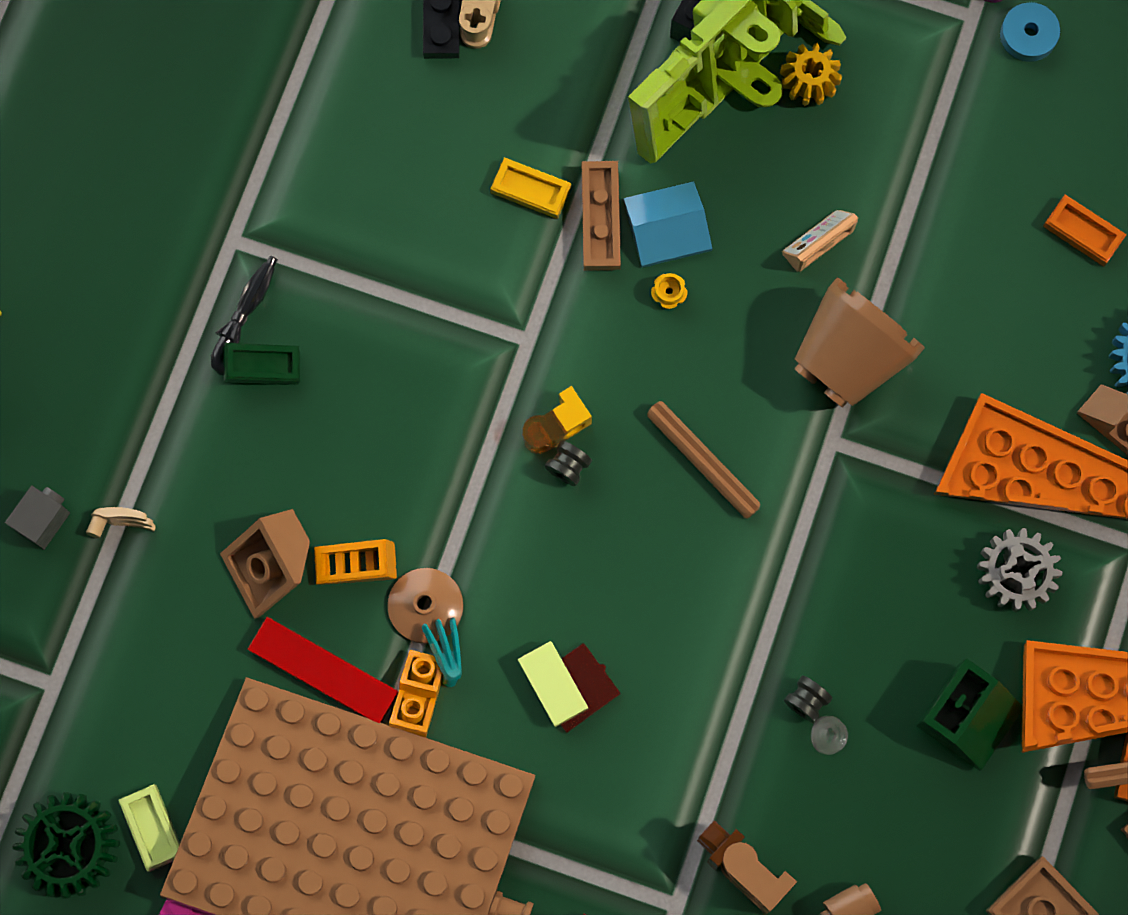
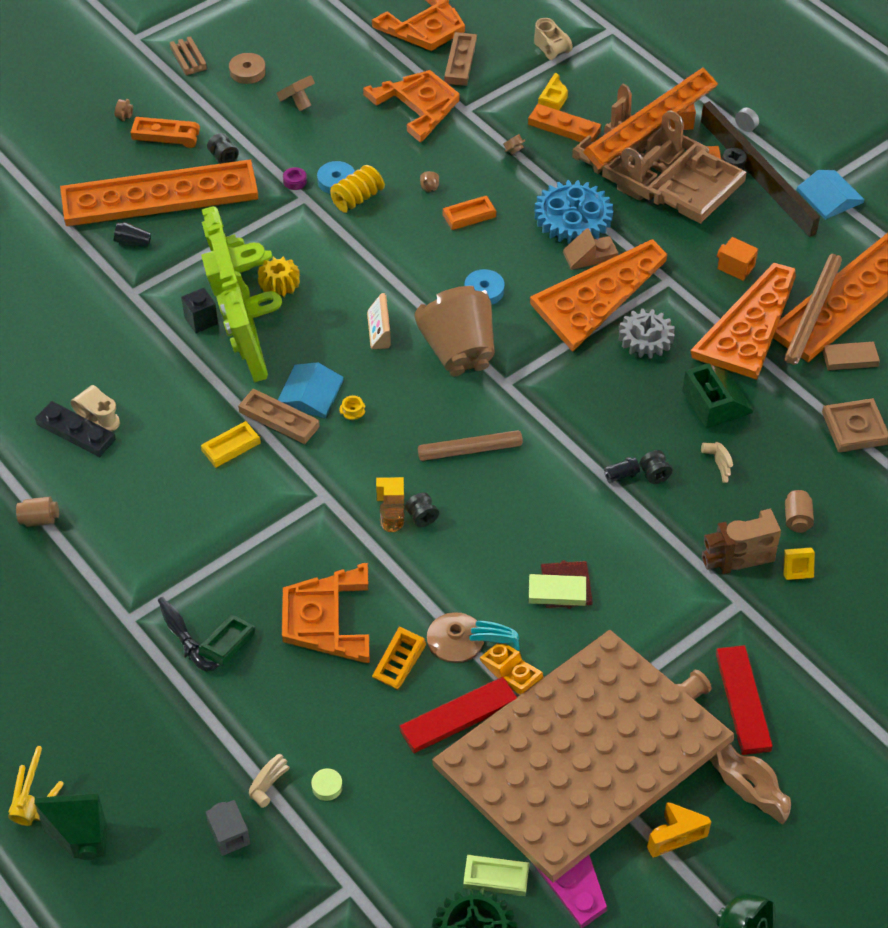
camera: 60 degrees left, 25 degrees down
(153, 584) = (327, 784): none -> yellowish green tile
(268, 560) = (365, 704): medium nougat slope -> none
(300, 49) = (37, 511): none -> medium nougat brick
(352, 433) = (312, 614): none -> orange wing
(780, 660) = (627, 468): none -> black pin
(836, 737) = (684, 468): clear plate -> none
(880, 769) = (721, 456): none -> tan piece
(968, 309) = (487, 278): none -> dark azure piece
(1021, 70) = (356, 188): none -> yellow piece
(1099, 150) = (429, 181): none -> medium nougat hinge

